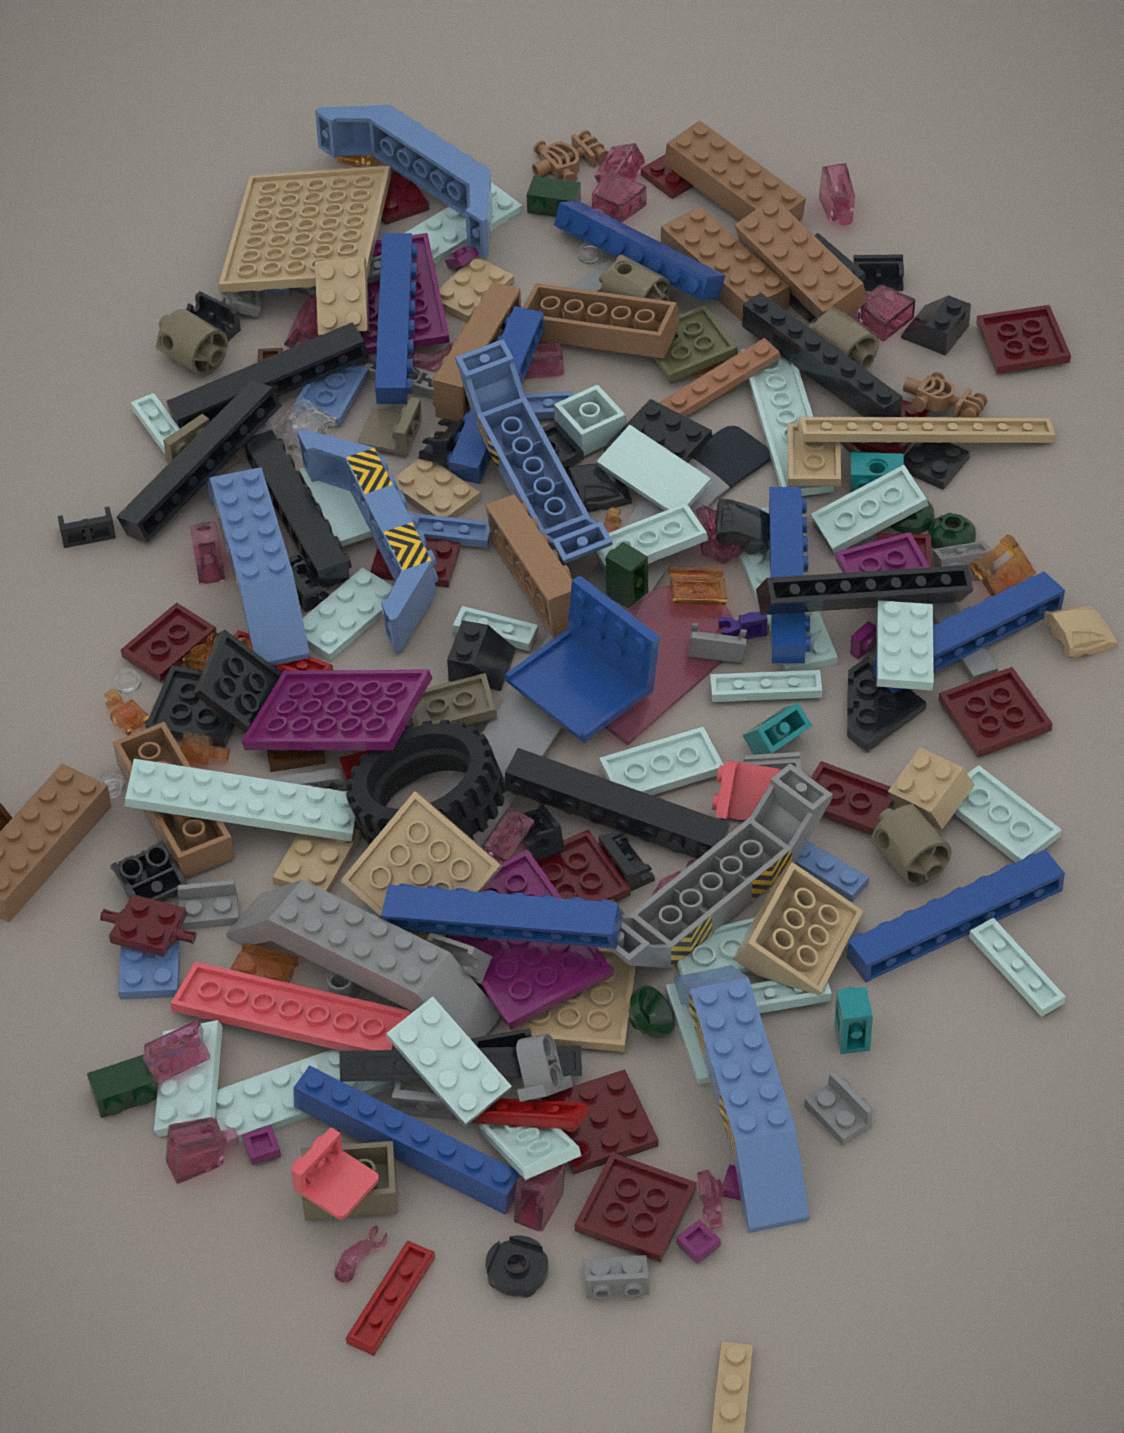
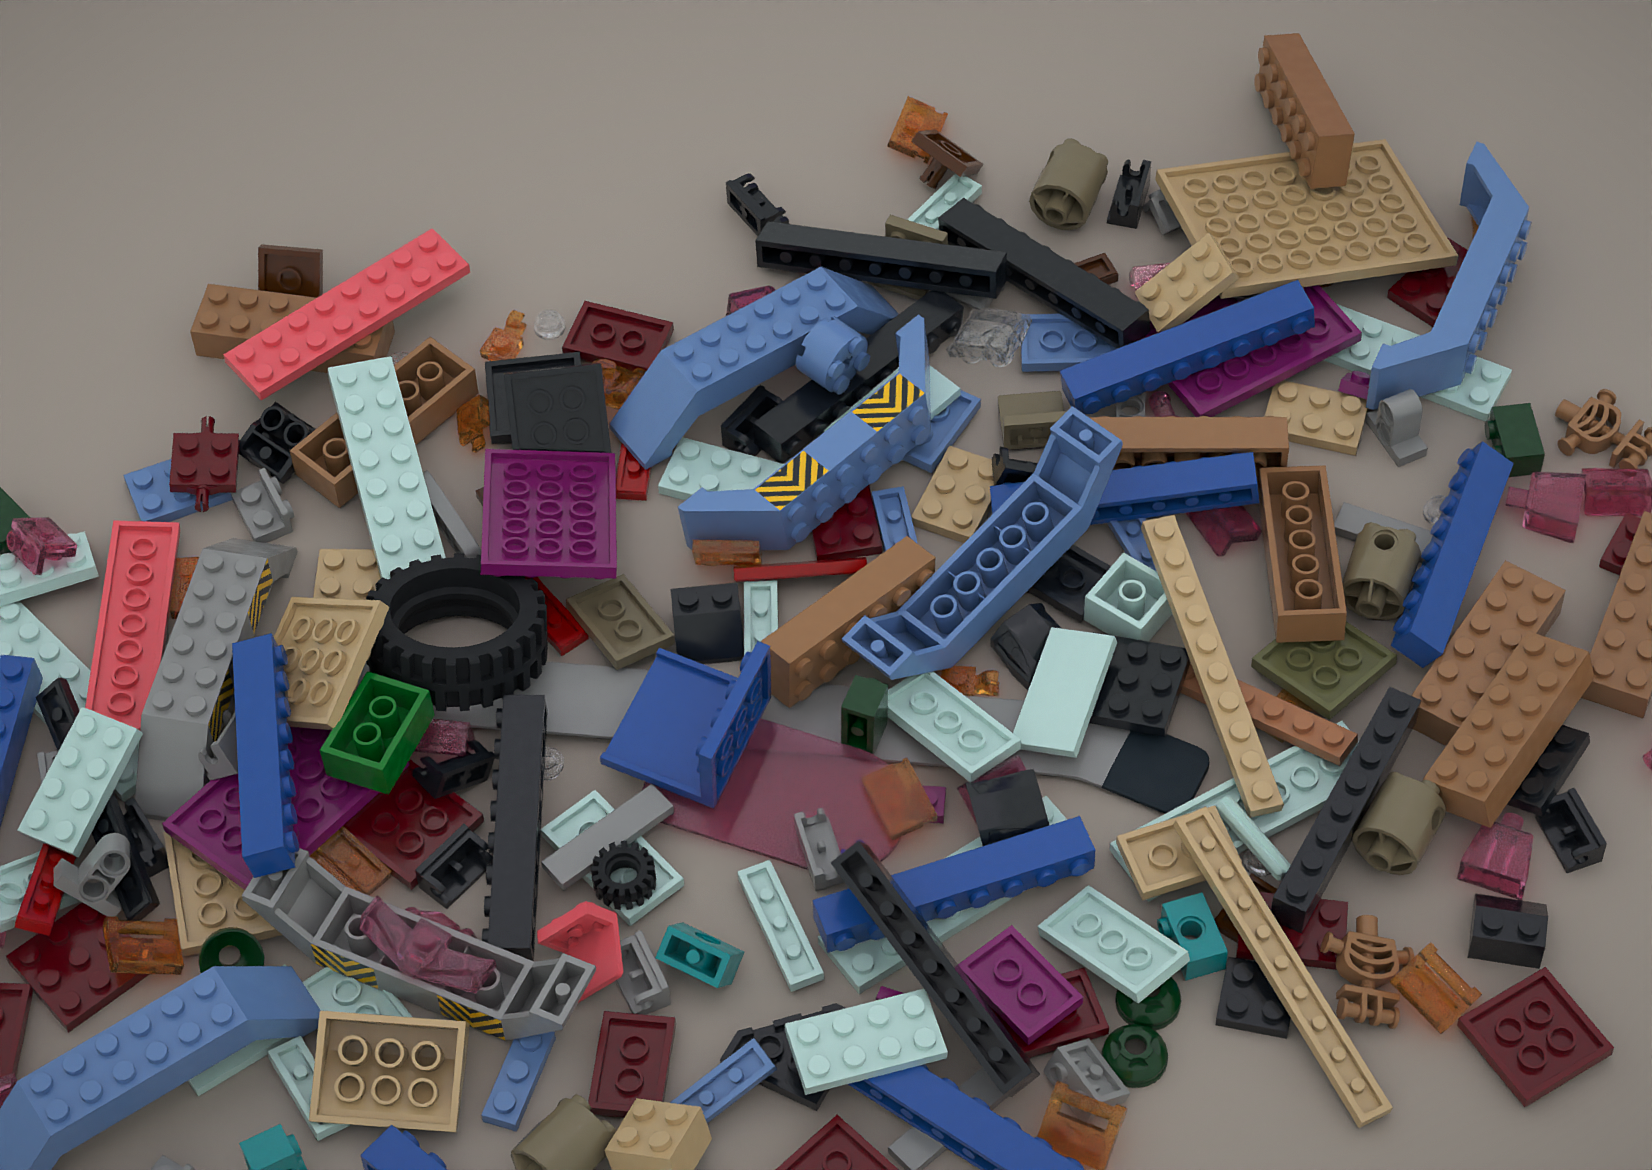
camera: 70 degrees right, 5 degrees up
(59, 787) = (346, 314): none -> coral plate
(70, 415) = (913, 118): none -> clear orange plate
(118, 400) = (945, 156): none -> reddish brown tile
(214, 193) = (1304, 110): none -> medium nougat brick
(295, 497) = (833, 354): none -> medium blue brick
(422, 631) = (727, 552): none -> clear orange plate
(457, 592) = (799, 569): none -> red tile
(511, 250) = (1398, 426): none -> light grey tile
(518, 845) = (377, 732): none -> green brick
(621, 1068) = (143, 954): none -> clear orange plate
(649, 756) = (622, 824): none -> light grey tile
(671, 389) = (1212, 667): none -> tan plate
(691, 741) = (623, 858): none -> black tyre
(714, 875) = (423, 949): none -> clear pink plate
(842, 410) = (1253, 837): none -> light aqua axle
(890, 741) = (729, 1080): none -> medium blue plate
(972, 369) = (1430, 994): none -> clear orange plate

